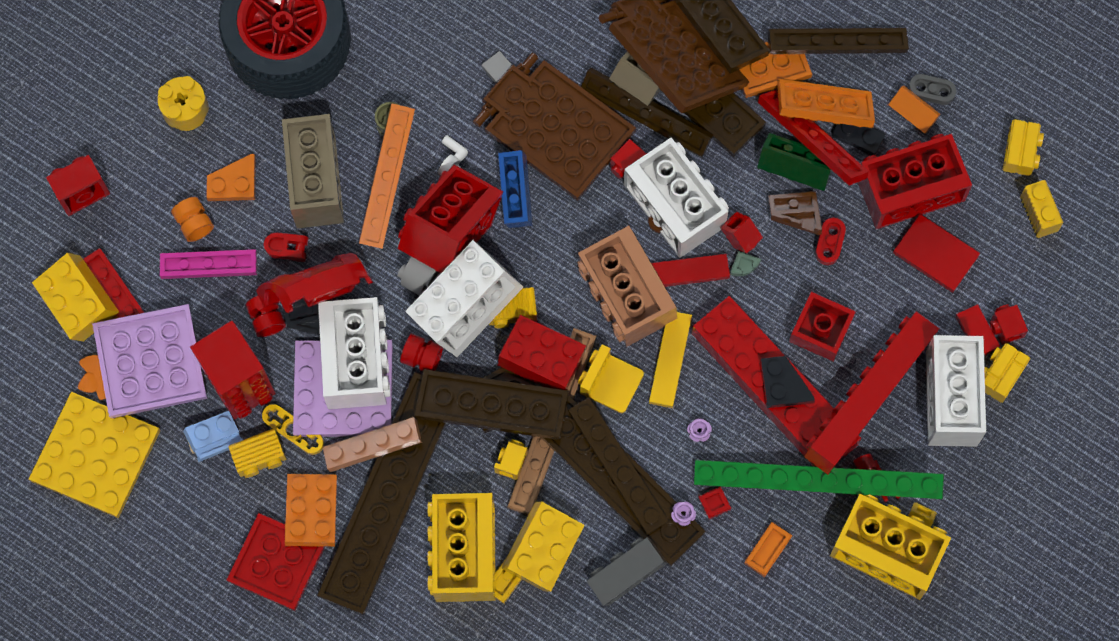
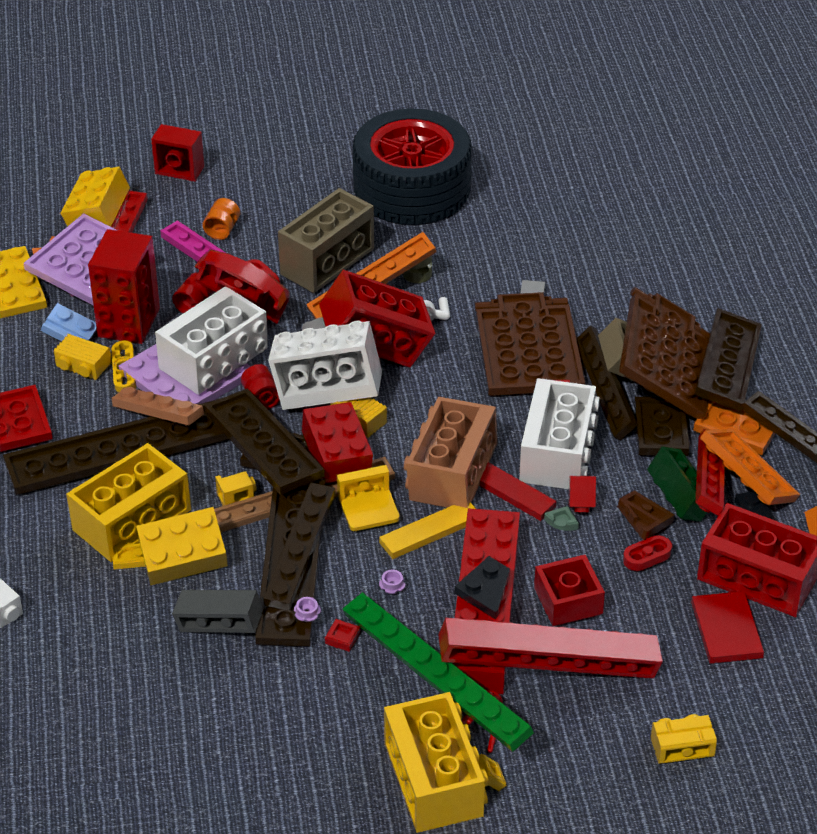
camera: 45 degrees right, 30 degrees down
(181, 91) = (299, 164): yellow brick -> none
(233, 181) = (269, 223): orange wing -> none
(310, 510) = (68, 409): orange plate -> none
(515, 189) = (449, 348): blue brick -> none
(768, 549) = (342, 696): orange tile -> none
(955, 391) = (619, 702): white brick -> none
(975, 324) = (698, 696): red tile -> none
(1008, 324) = (728, 712): red brick -> none

